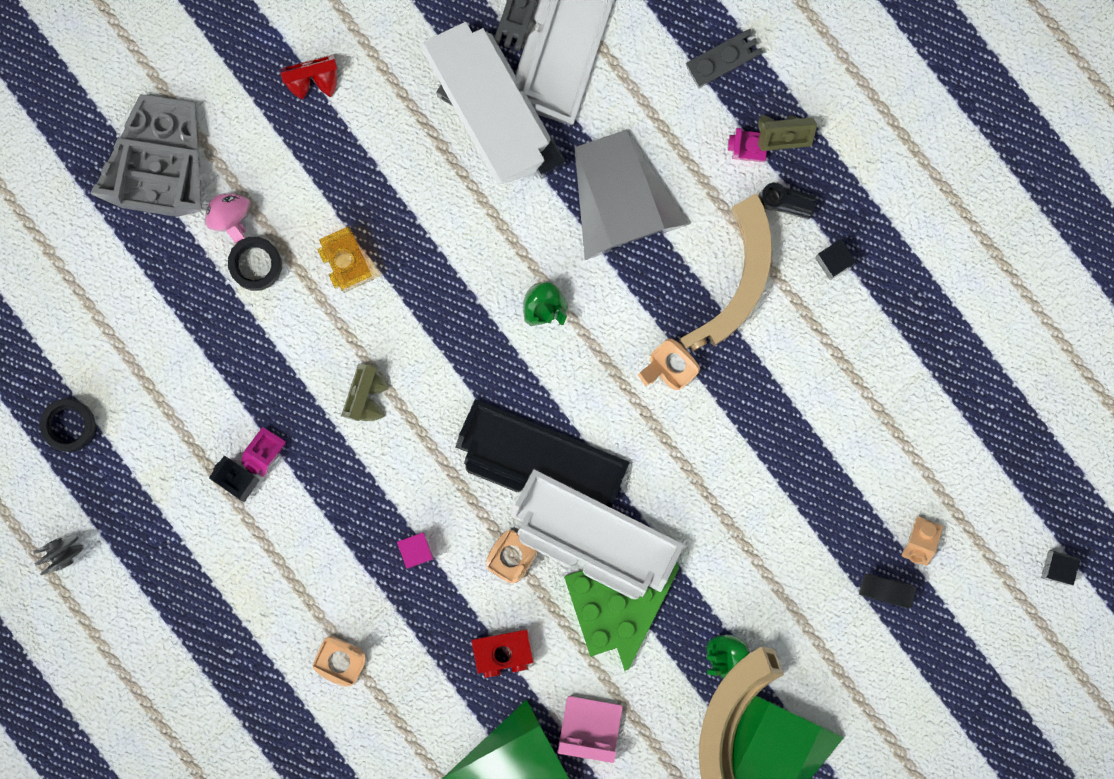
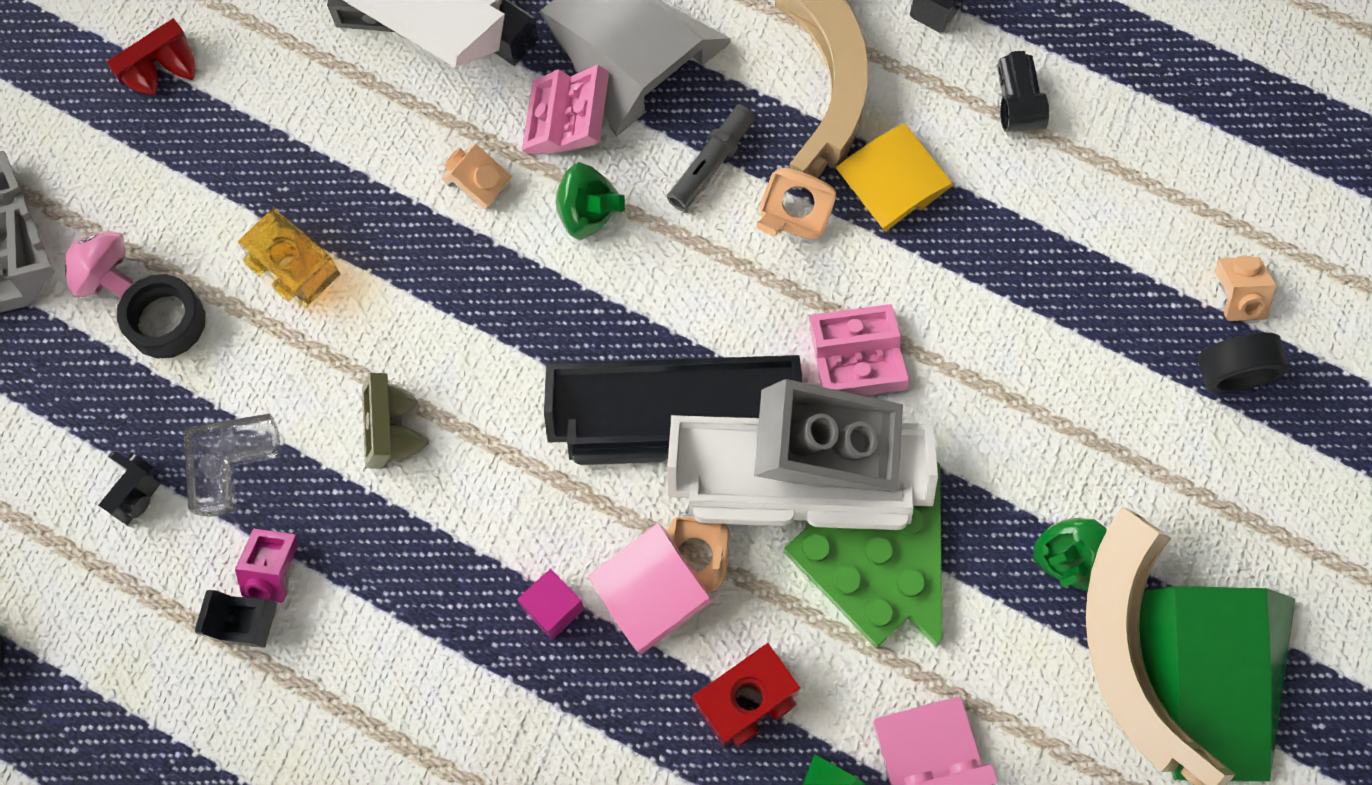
camera: 20 degrees left, 15 degrees down
(198, 375) = (132, 491): none -> black bracket
(255, 370) = (213, 453): none -> clear brick
(475, 566) = (649, 588): none -> bright pink slope
(483, 251) = (476, 174): none -> light nougat bracket
(558, 233) = (565, 111): none -> bright pink slope
(616, 529) = (828, 437): none -> light grey slope
(637, 305) = (720, 144): none -> dark grey pin
(666, 475) = (859, 350): none -> bright pink slope
(745, 370) = (894, 176): none -> yellow slope
(851, 358) = (1021, 100): none -> black piece

